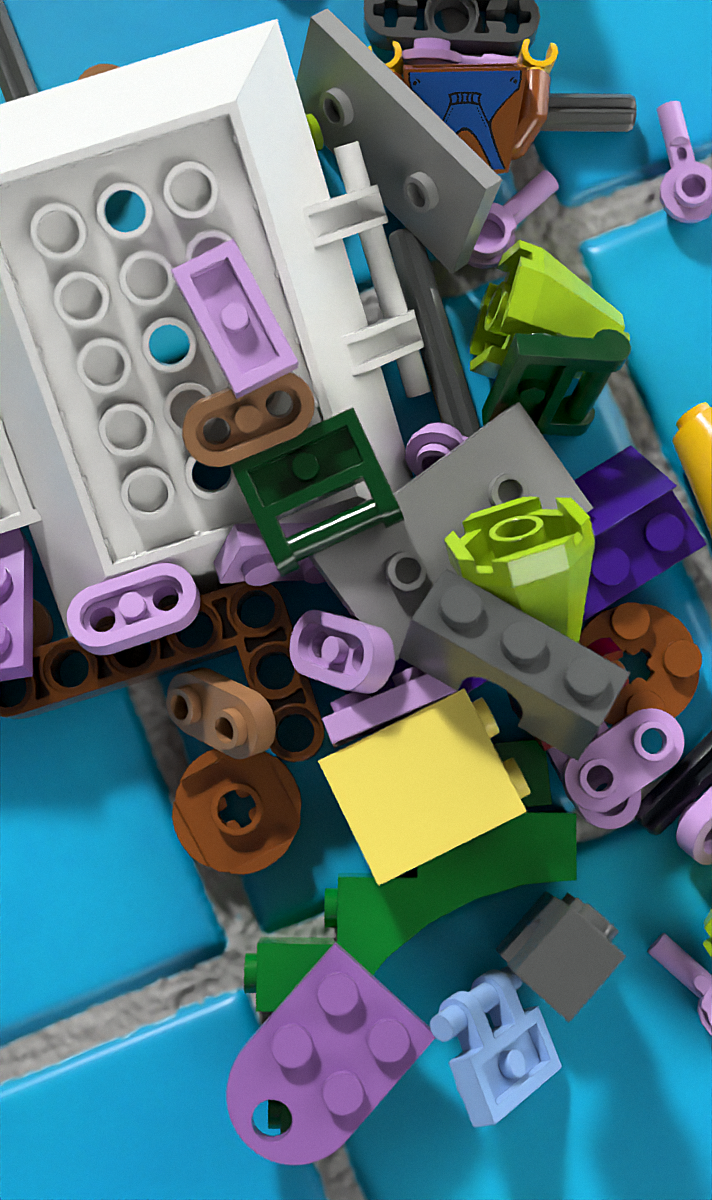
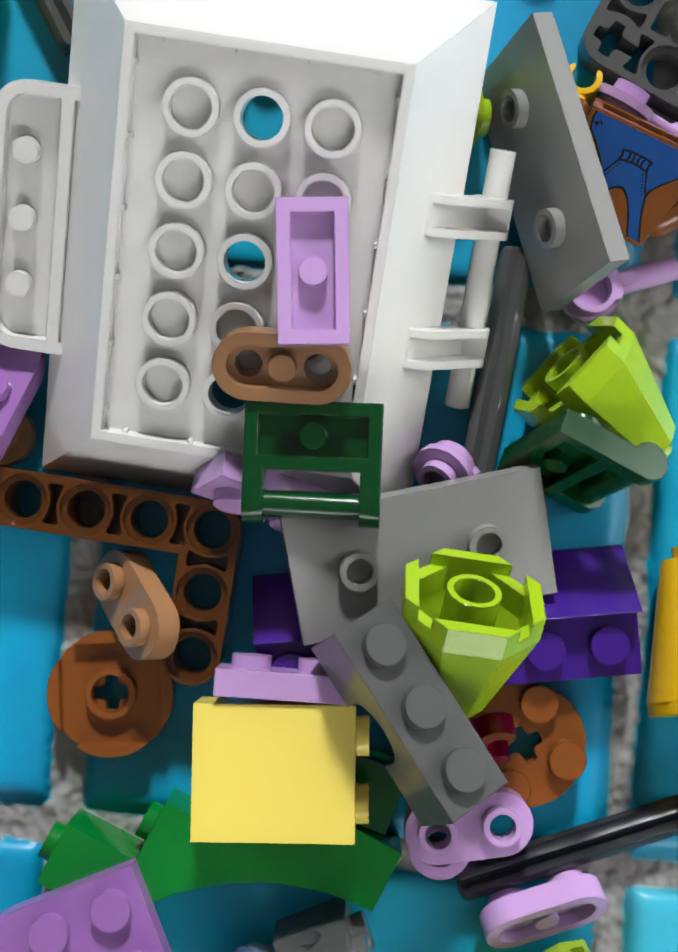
camera: 25 degrees right, 5 degrees up
(134, 603) = (103, 480): lavender plate -> none
(342, 651) = (264, 615): lavender plate -> none

